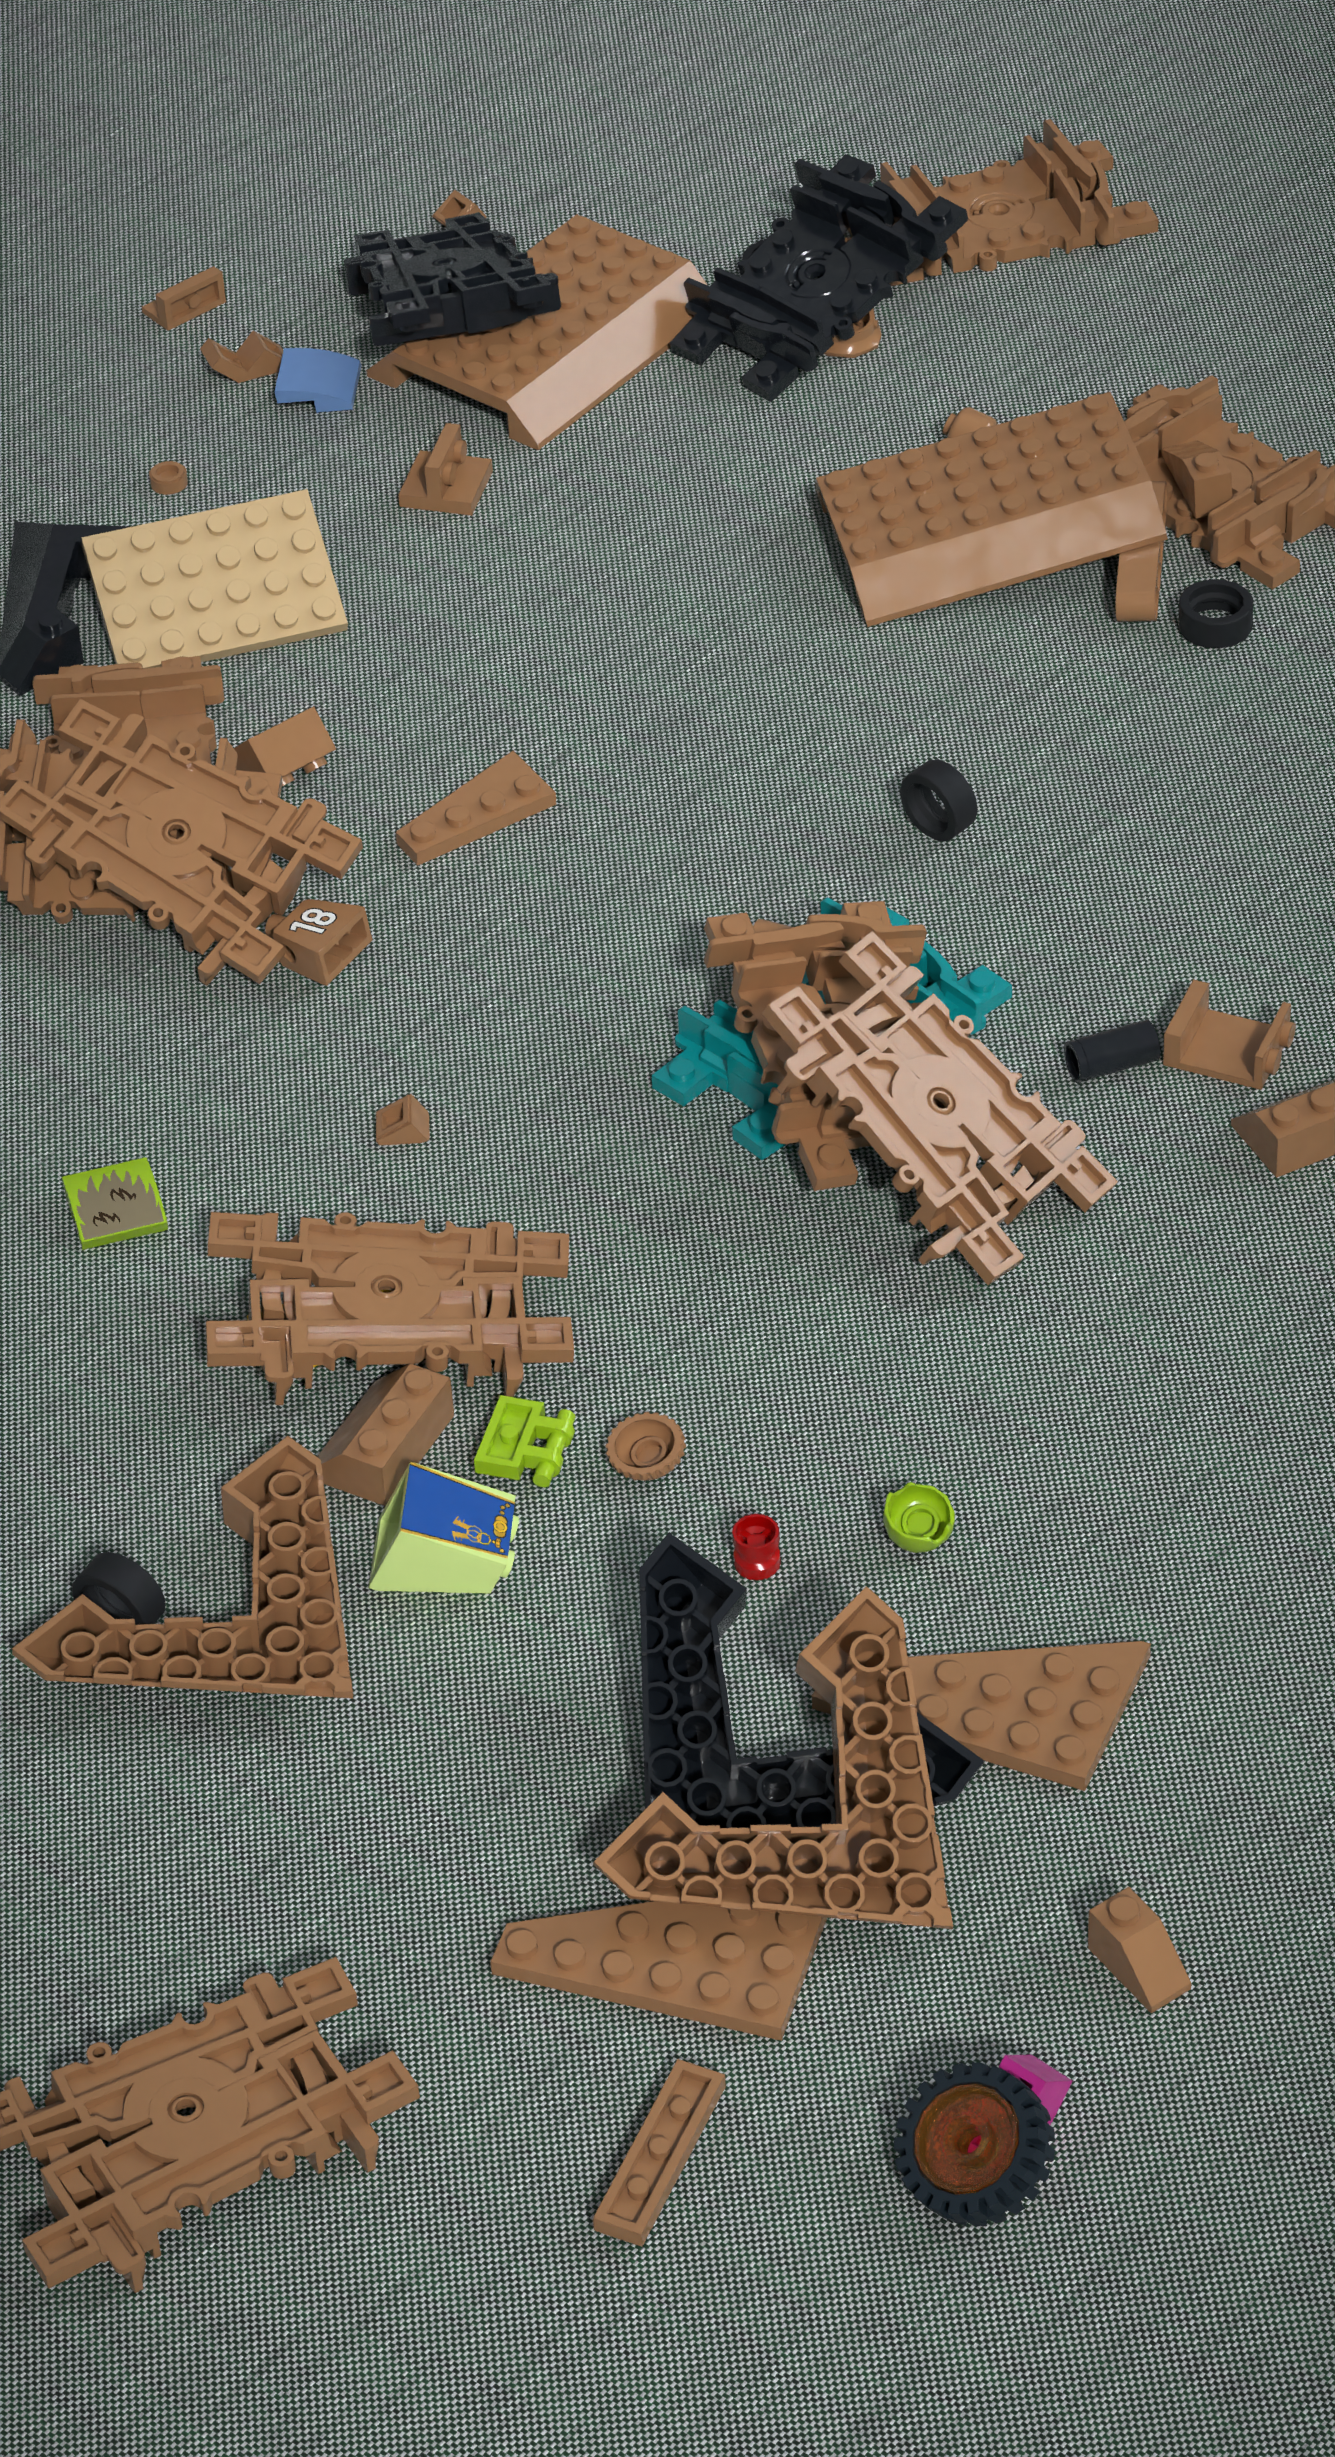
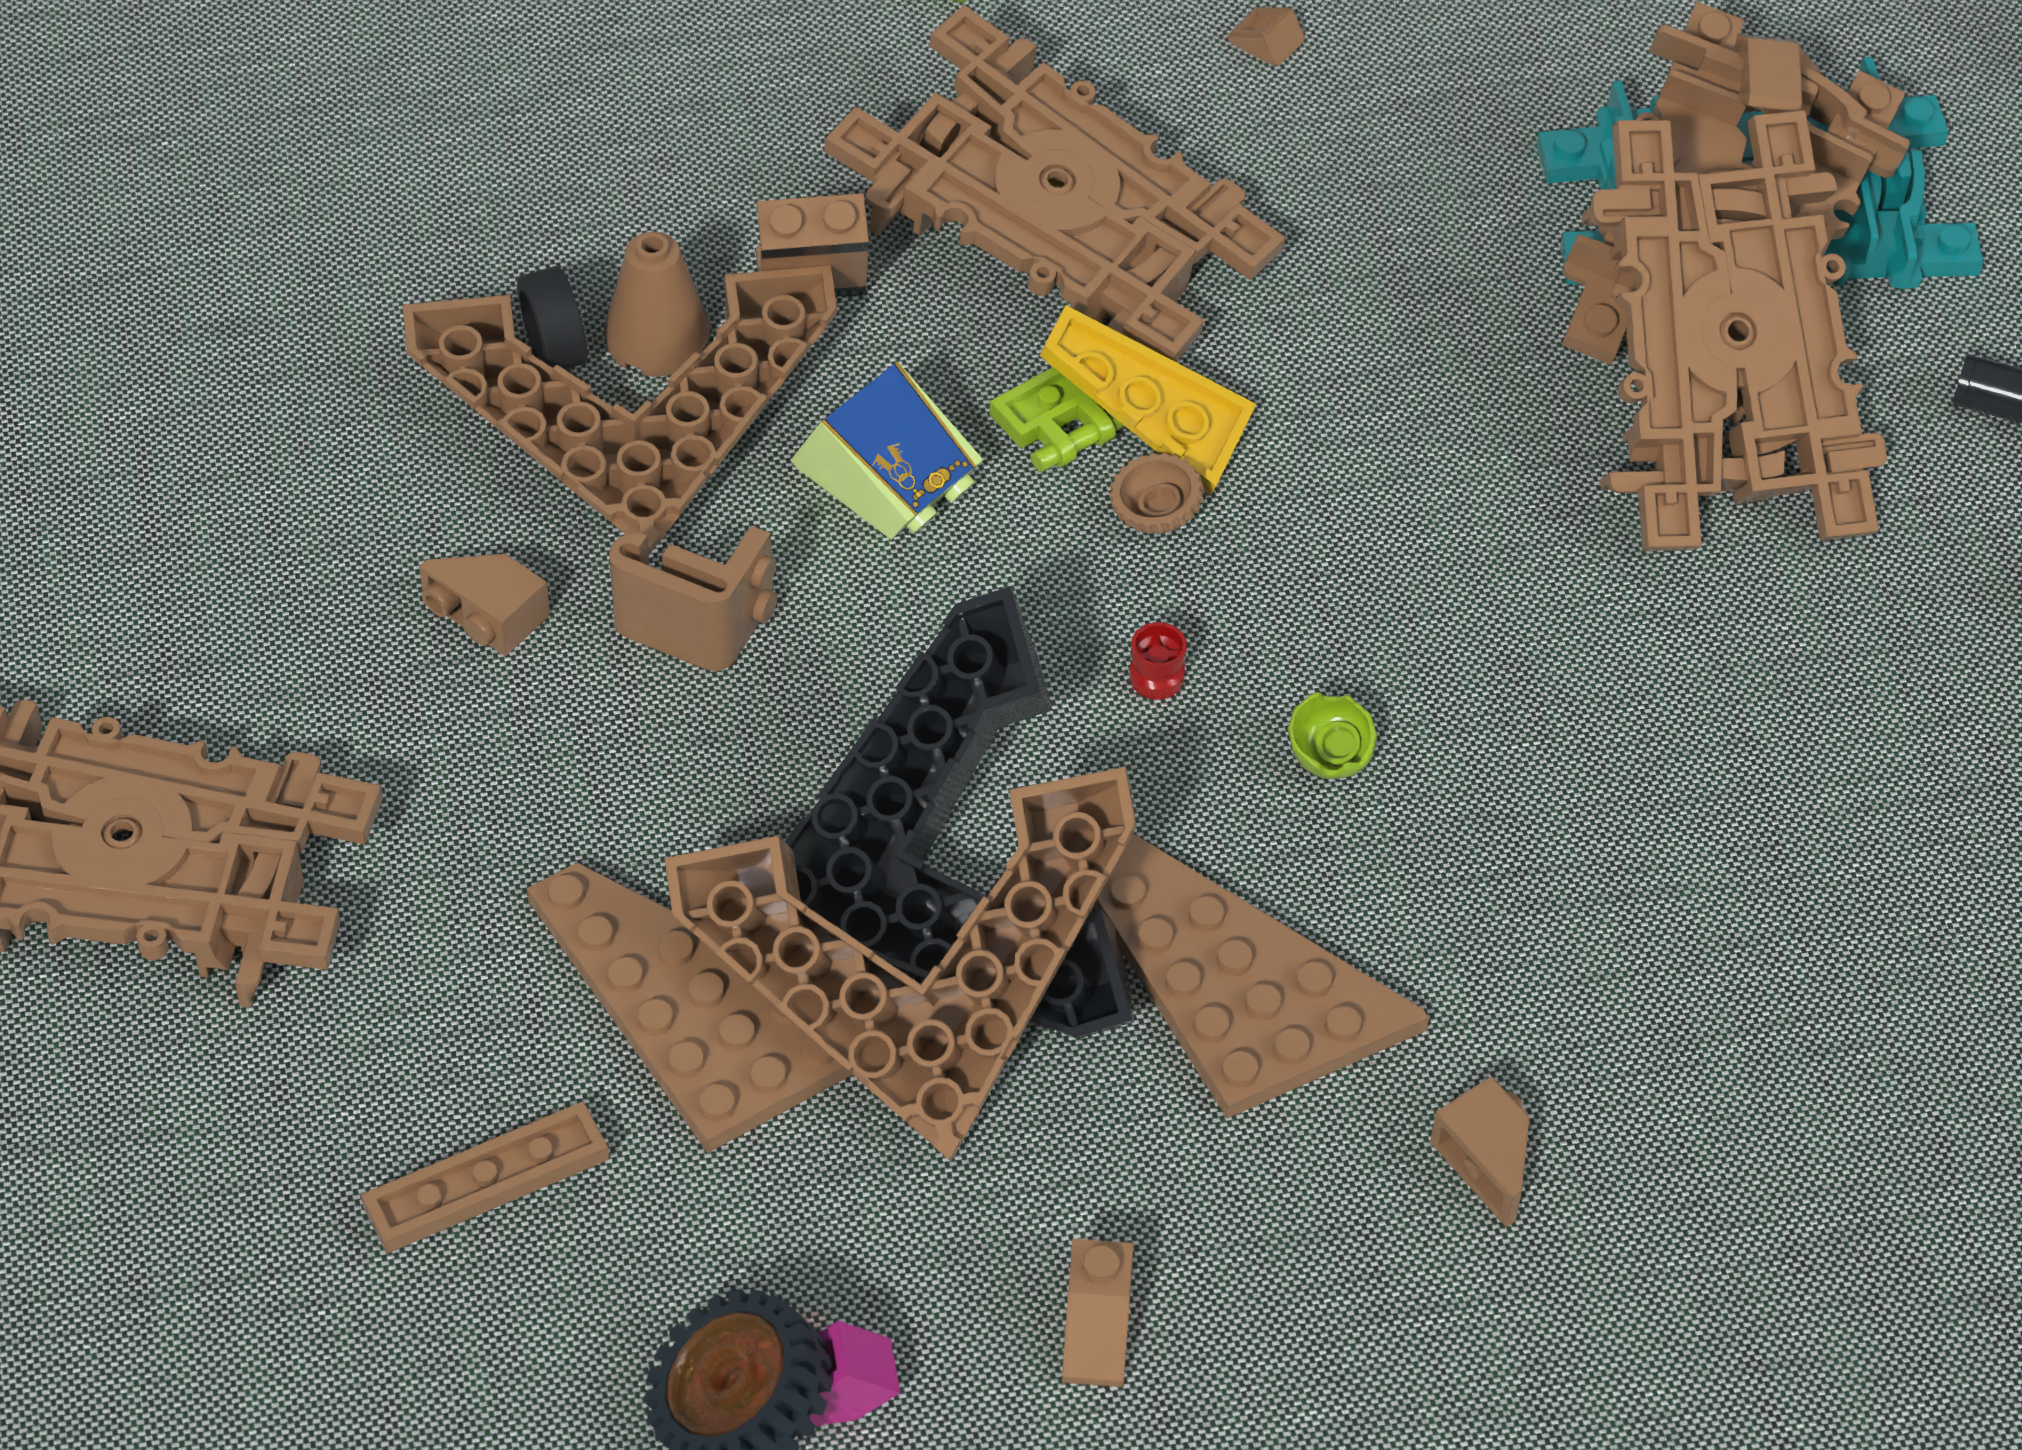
camera: 35 degrees right, 10 degrees up
(184, 1544) = (655, 308): none -> medium nougat cone
(260, 1802) = (487, 596): none -> medium nougat slope
(261, 1420) = (816, 234): none -> medium nougat panel
(386, 1431) = (946, 325): medium nougat slope -> none
(418, 1714) = (694, 604): none -> medium nougat piece
(577, 1386) = (1150, 393): none -> yellow wing
(811, 927) = (1770, 72): none -> medium nougat slope
(1269, 1692) = (1486, 1144): none -> medium nougat slope

